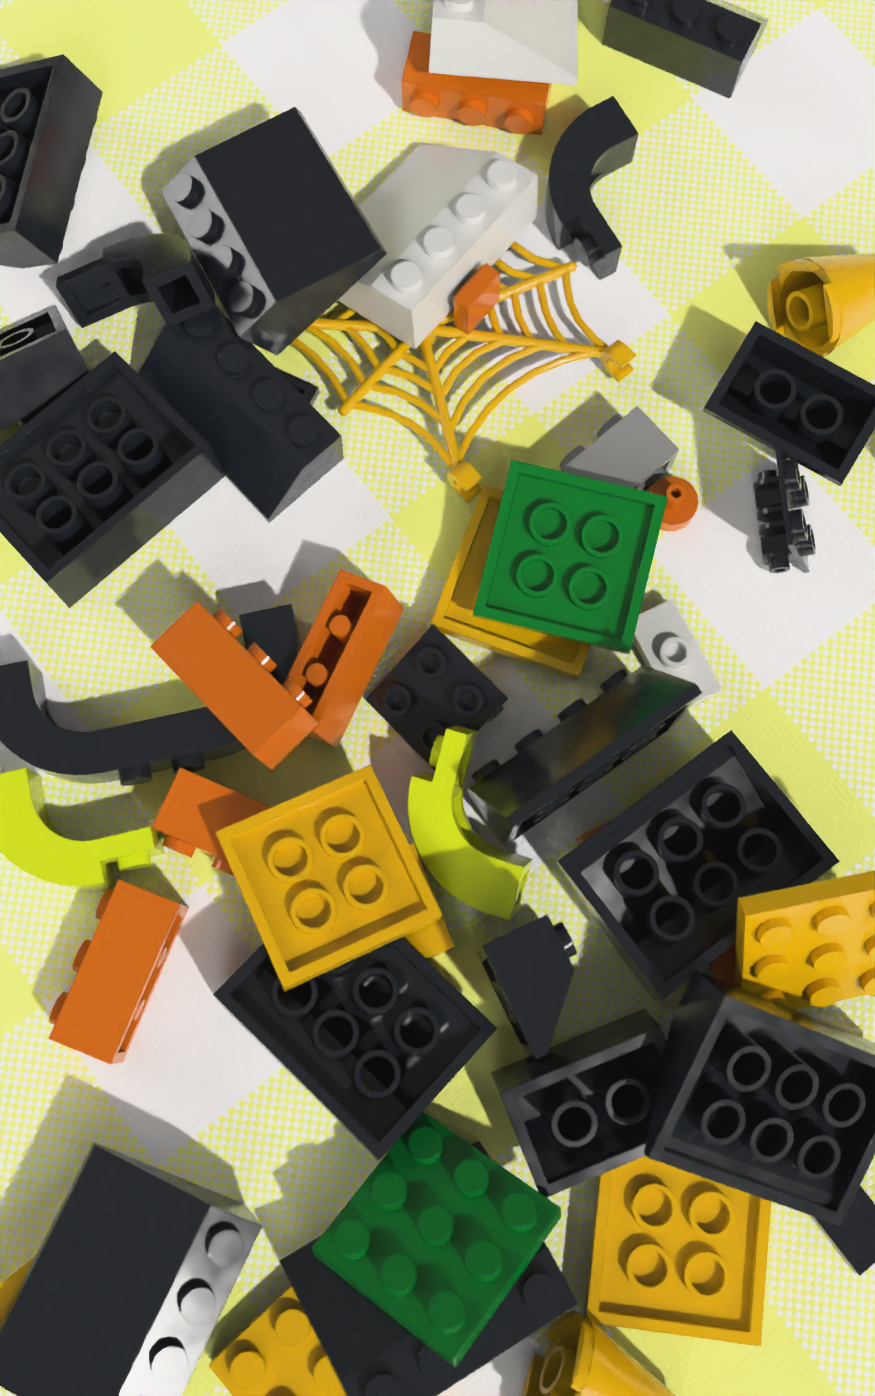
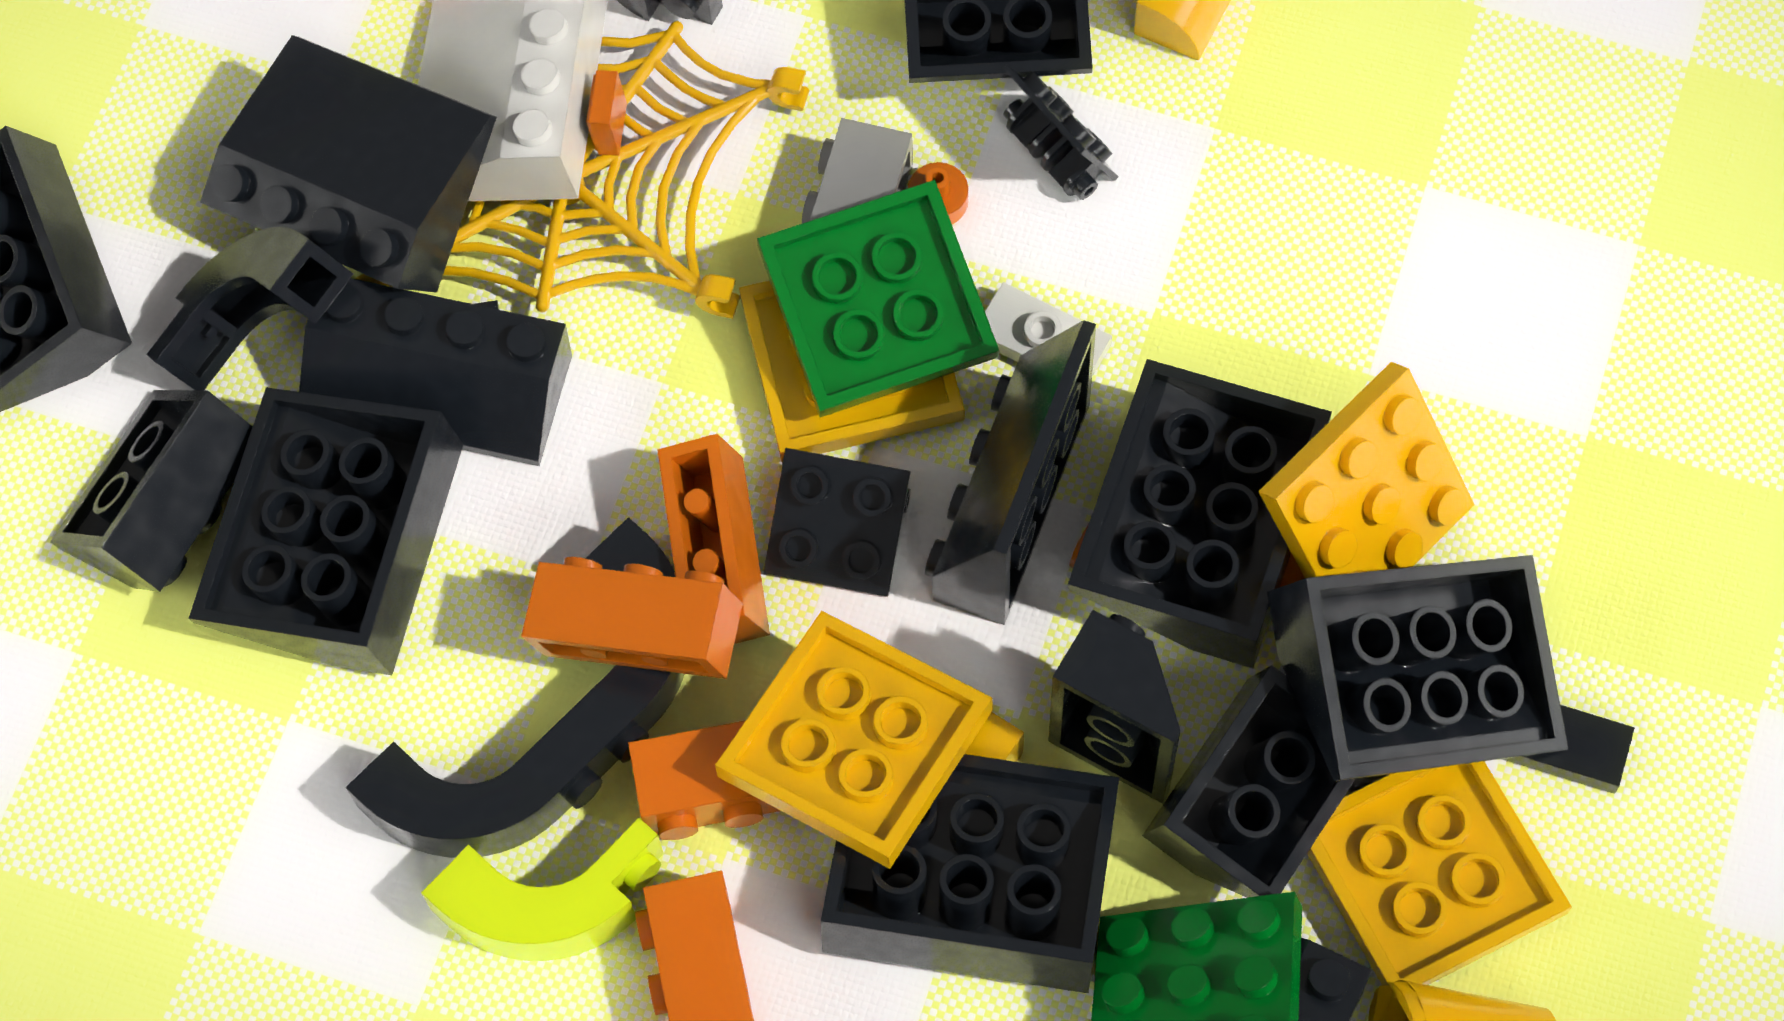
camera: 30 degrees left, 10 degrees down
(448, 844) = (974, 654): neon yellow arch -> none

